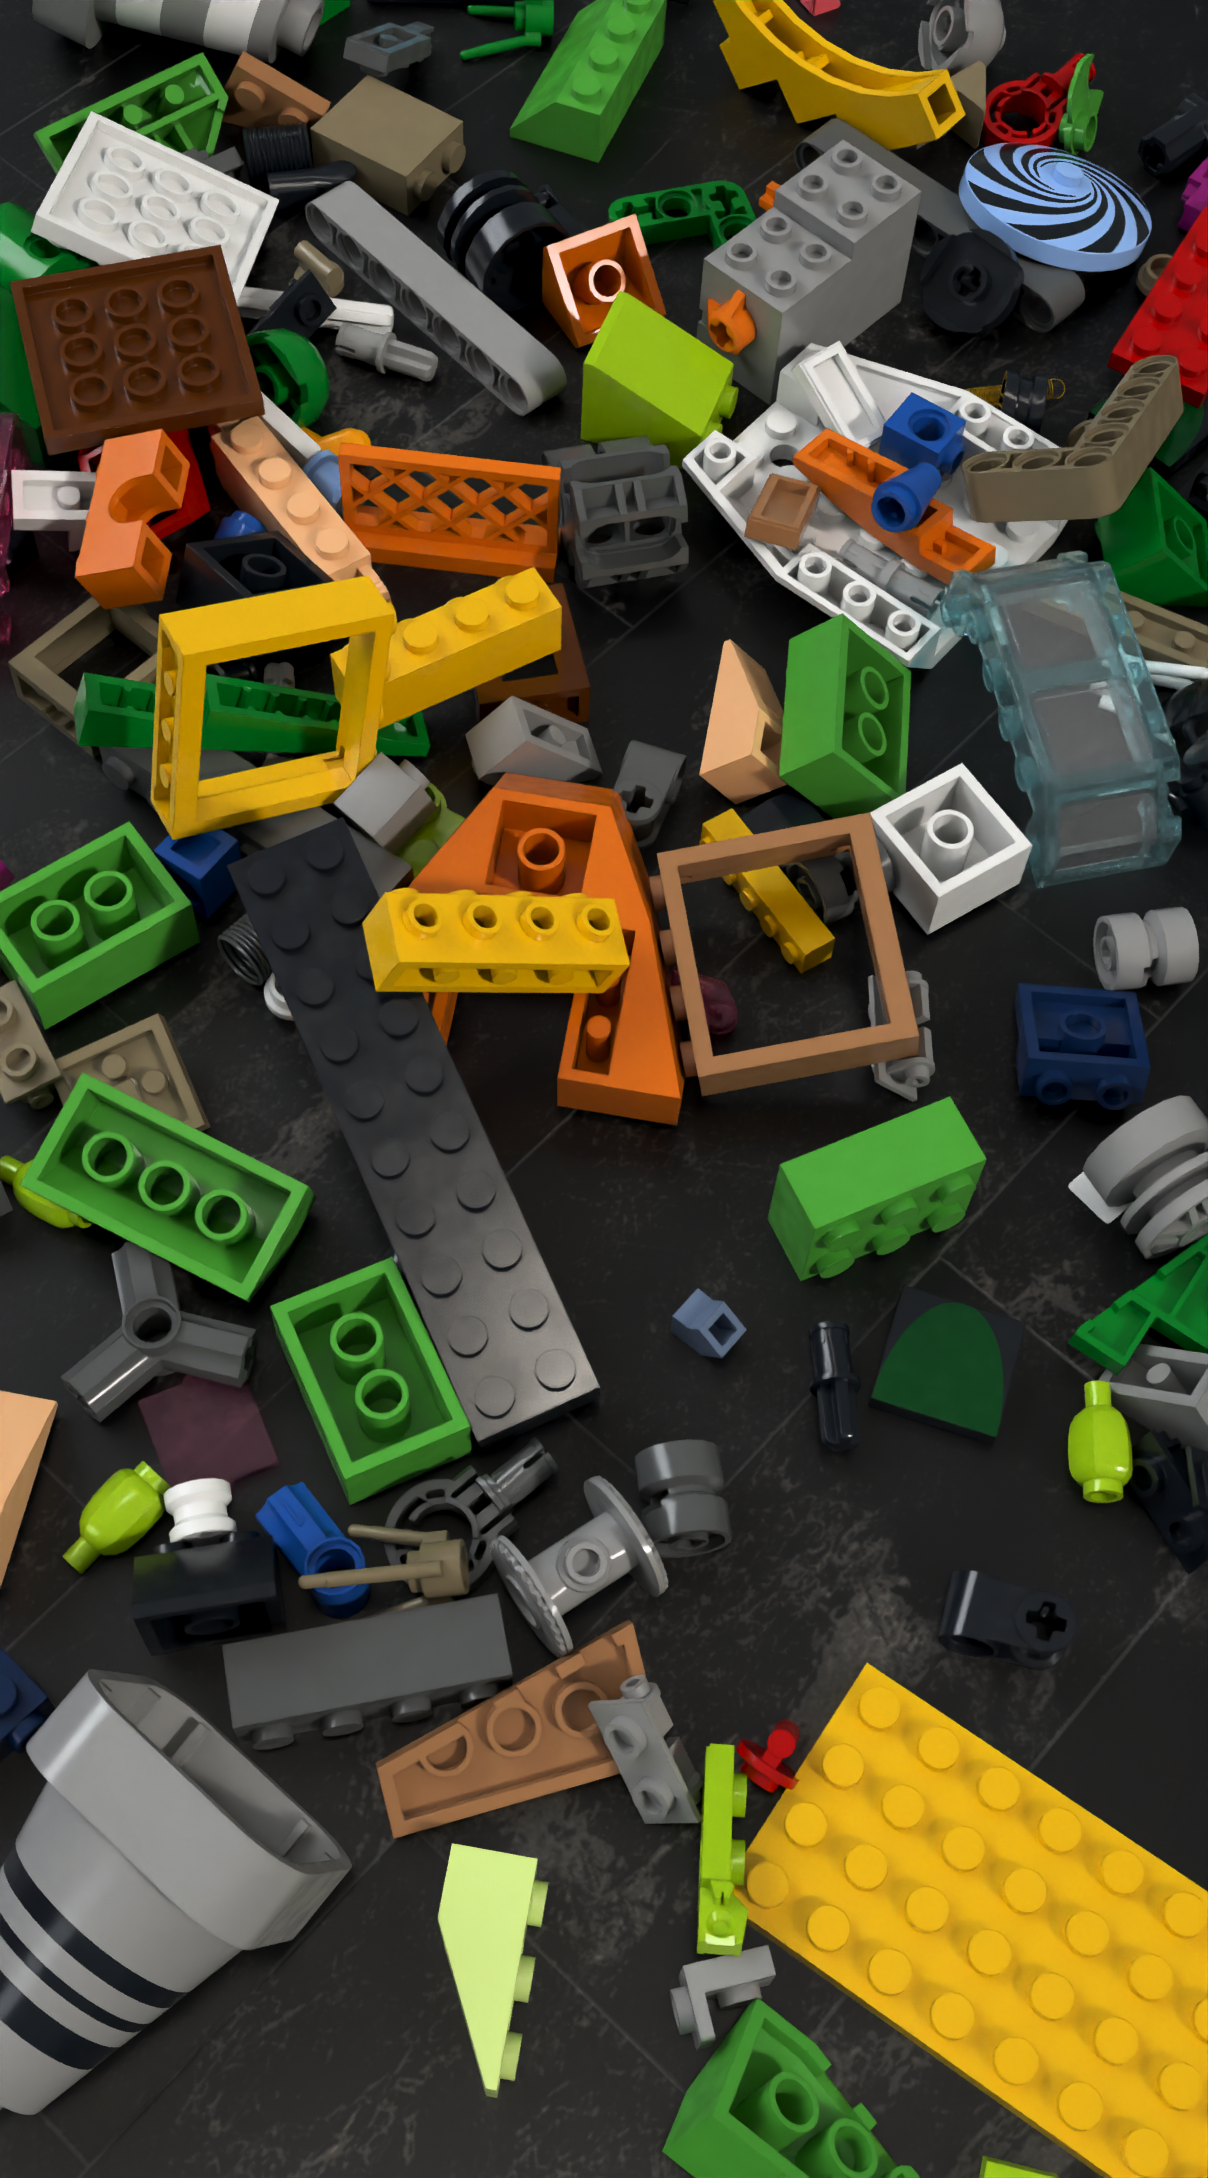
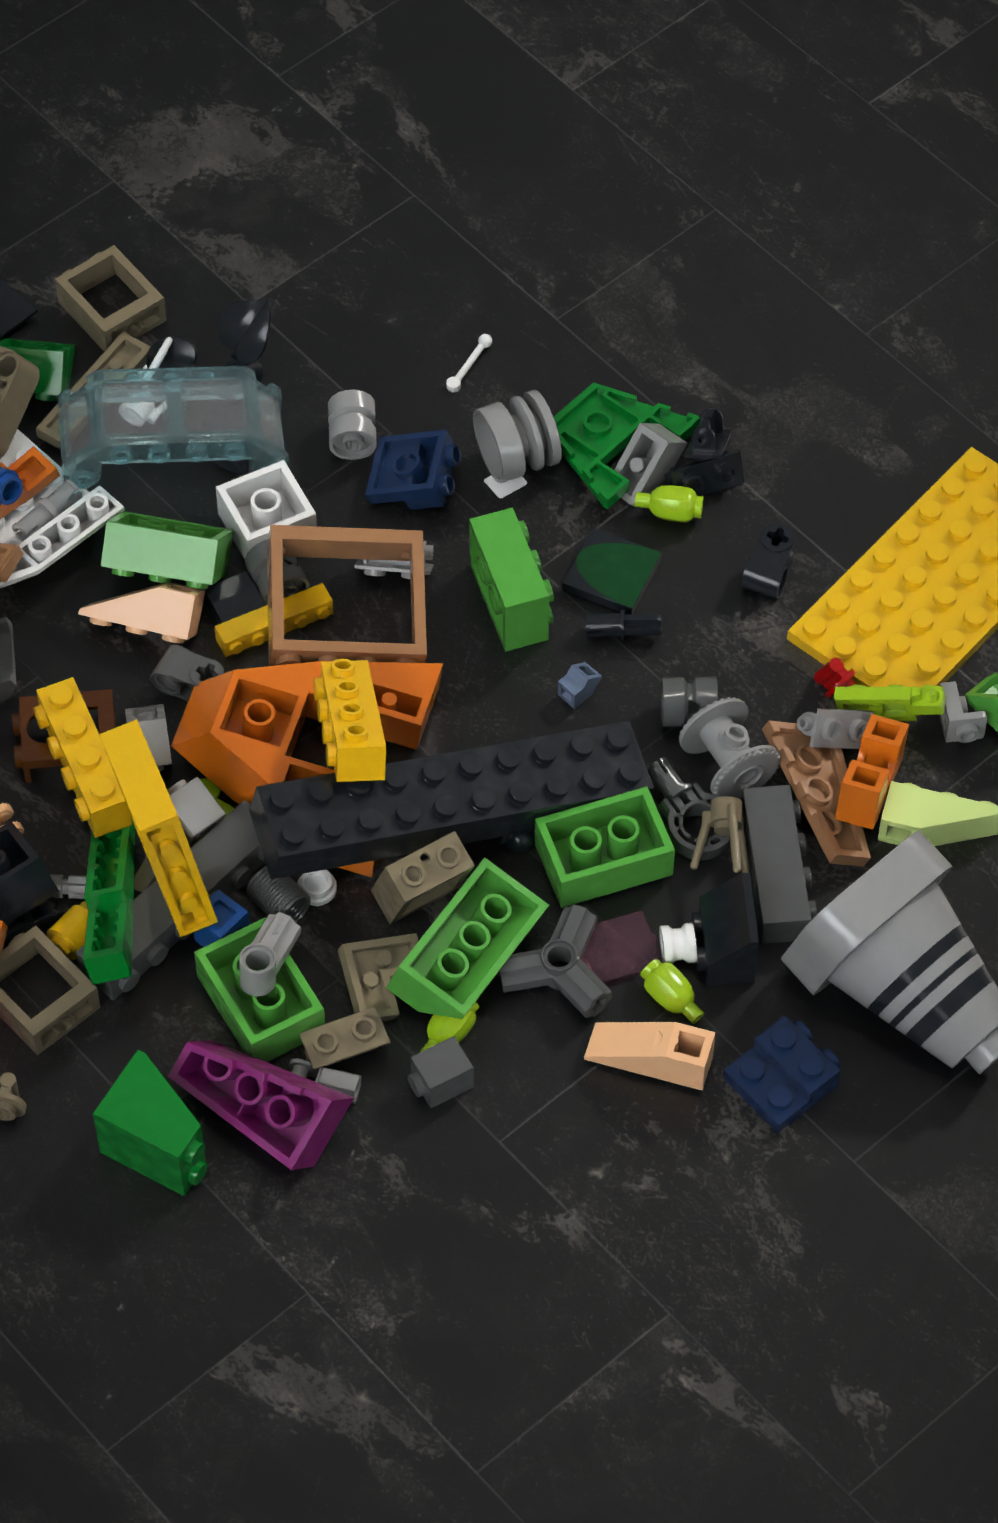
camera: 80 degrees left, 5 degrees down
(107, 899) = (267, 953): none -> light grey piece
(269, 1105) = (417, 883): none -> dark tan window
(314, 1546) = (684, 895): blue piece -> none
(581, 1834) = (869, 777): none -> orange arch

